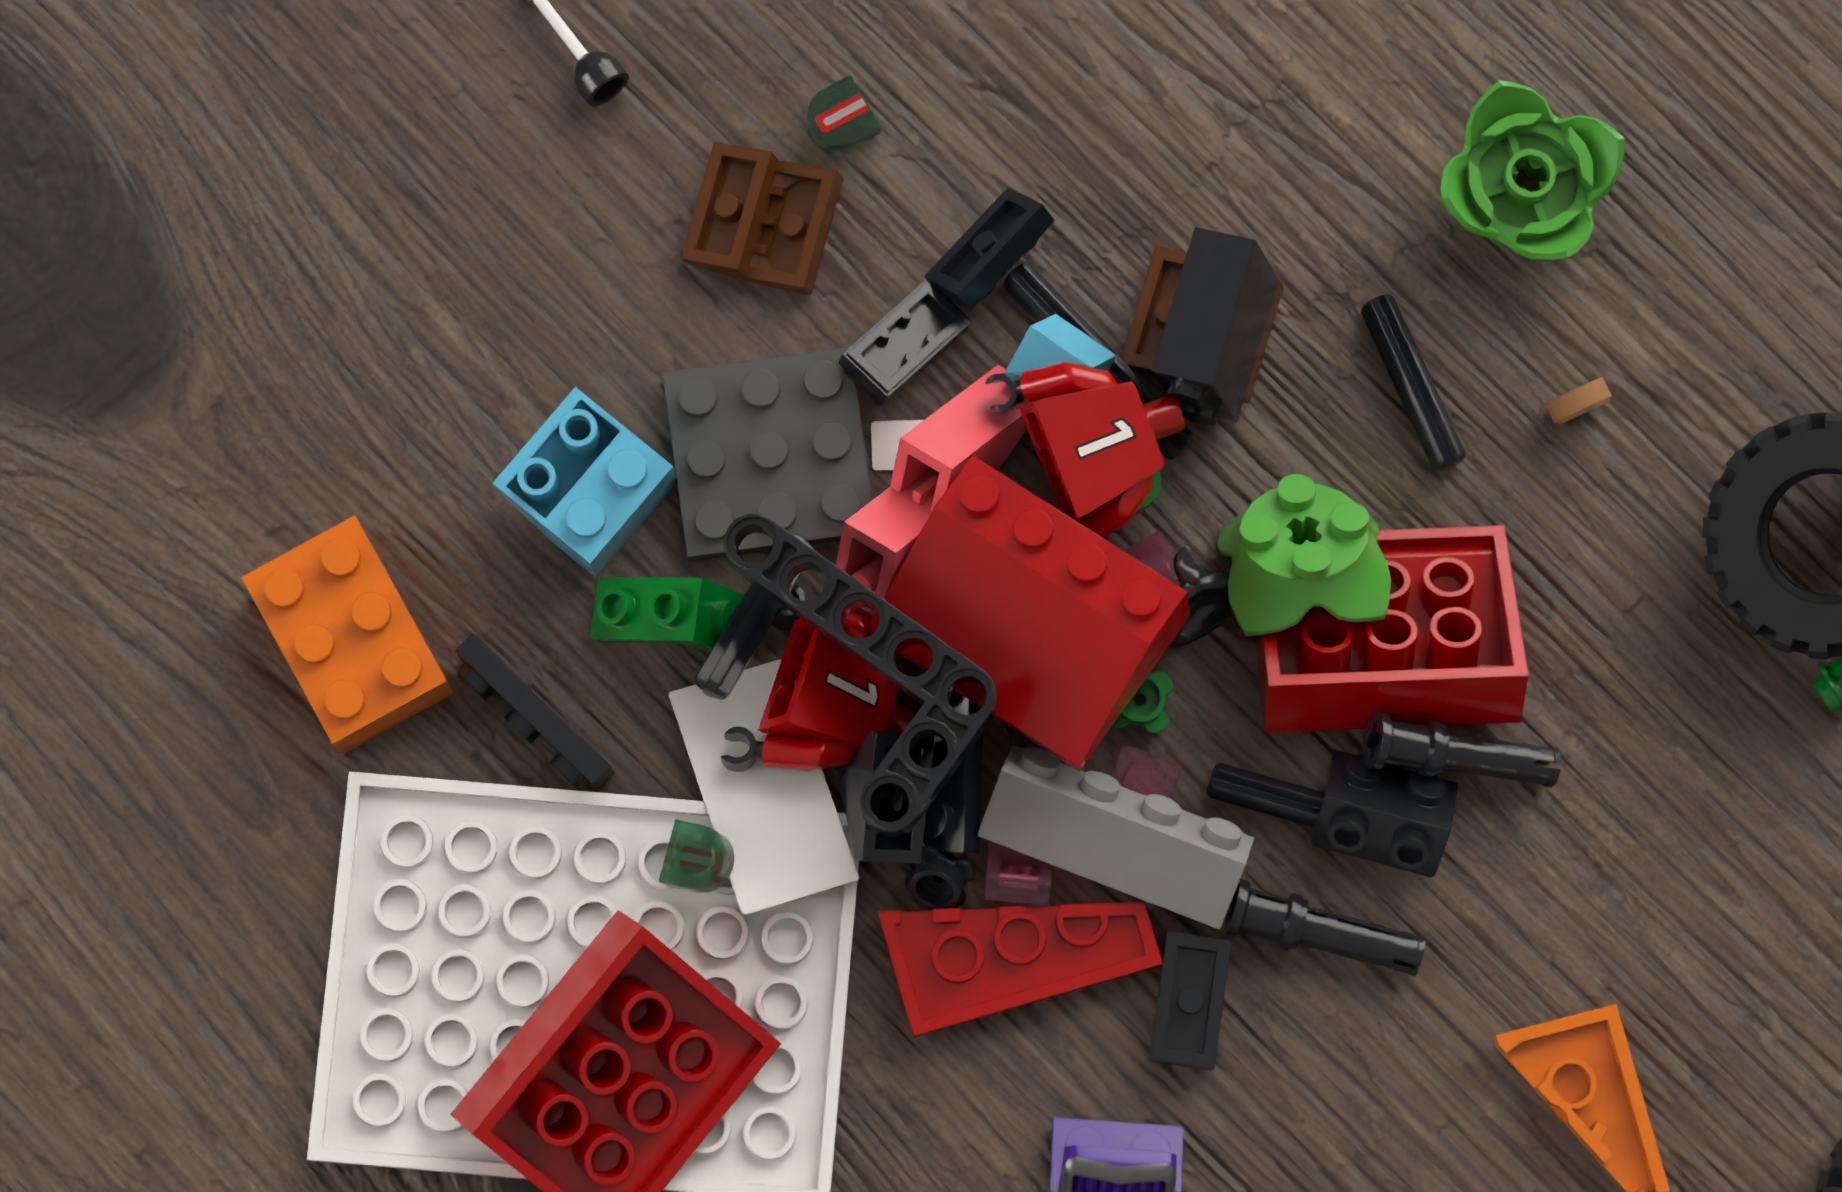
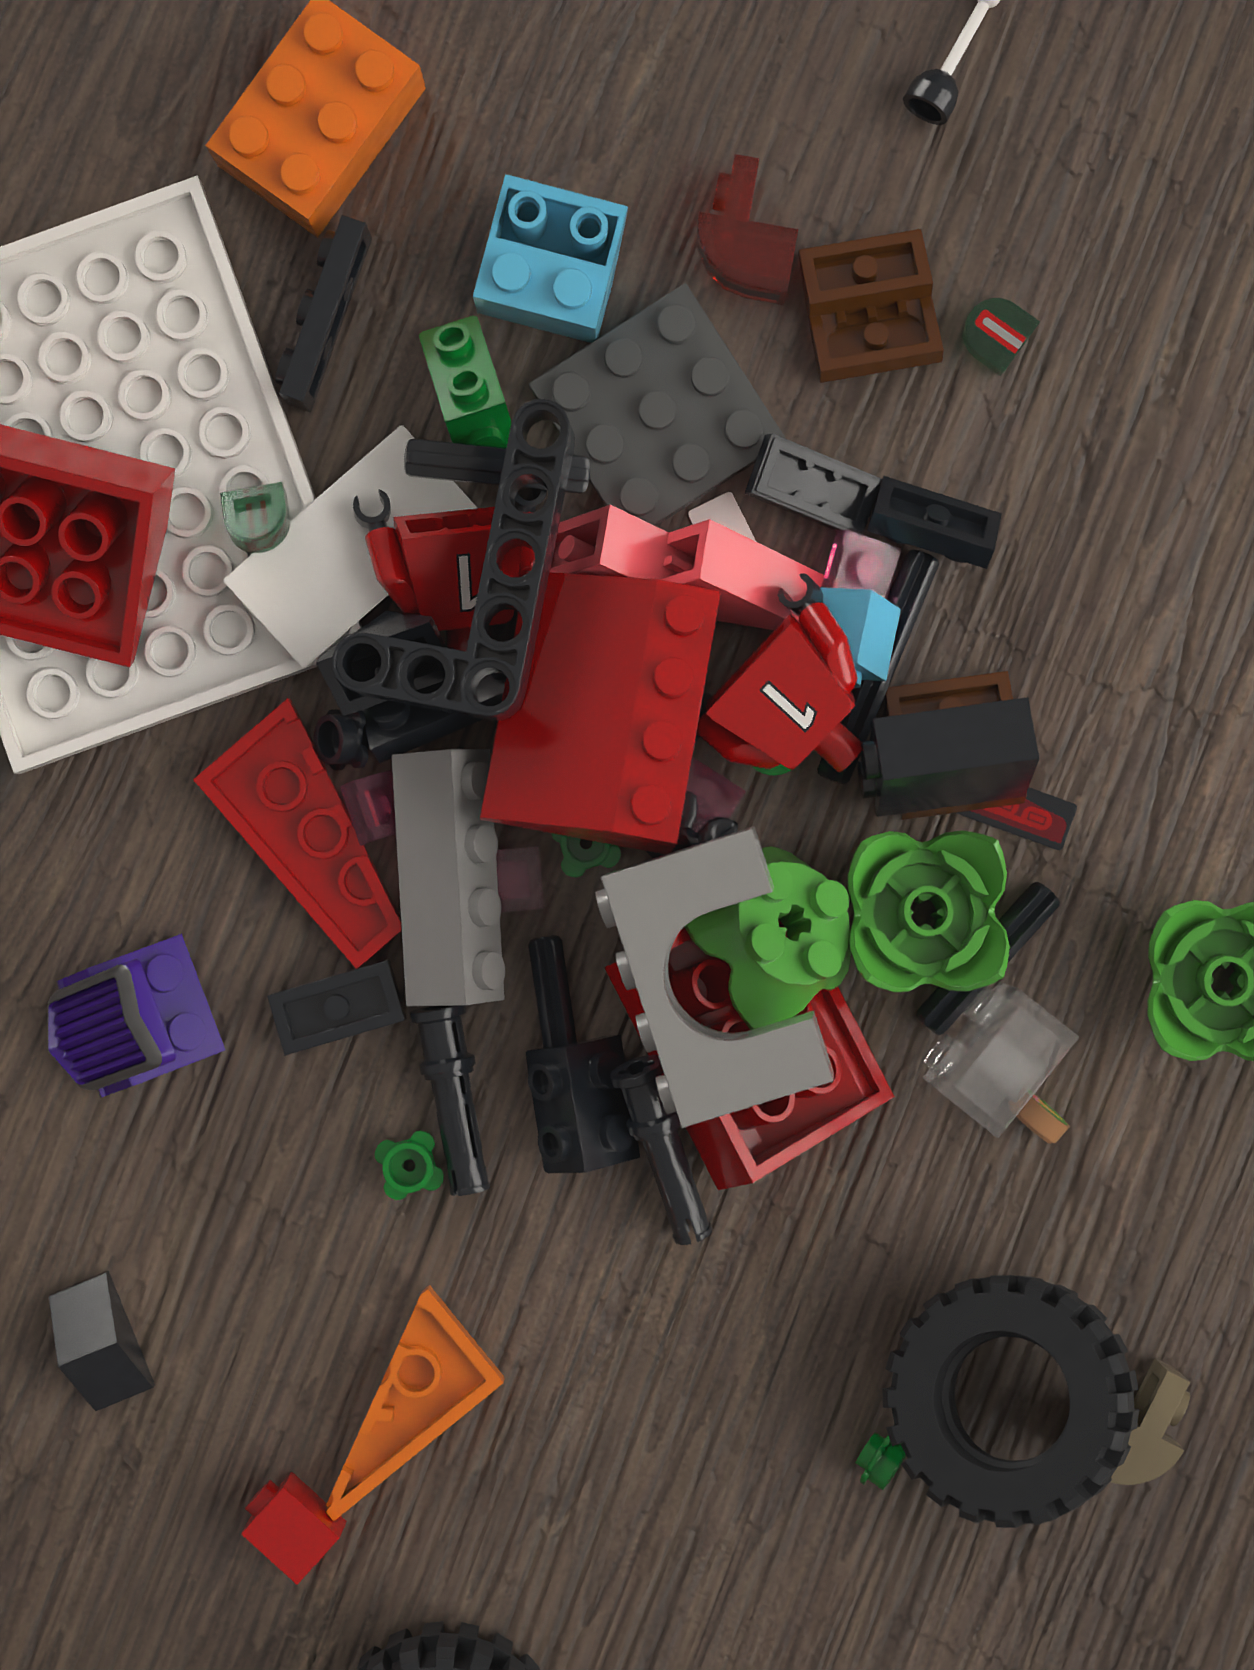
camera: 70 degrees right, 10 degrees up
(659, 311) = (741, 253): none -> clear red brick
(995, 332) = (860, 563): none -> clear pink plate
(1235, 645) = (703, 1068): none -> light grey arch
(1304, 280) = (1038, 819): none -> sticker
(1332, 371) = (963, 880): none -> bright green brick
(1386, 994) = (399, 1180): none -> green plate
(1509, 408) = (998, 1056): none -> clear brick

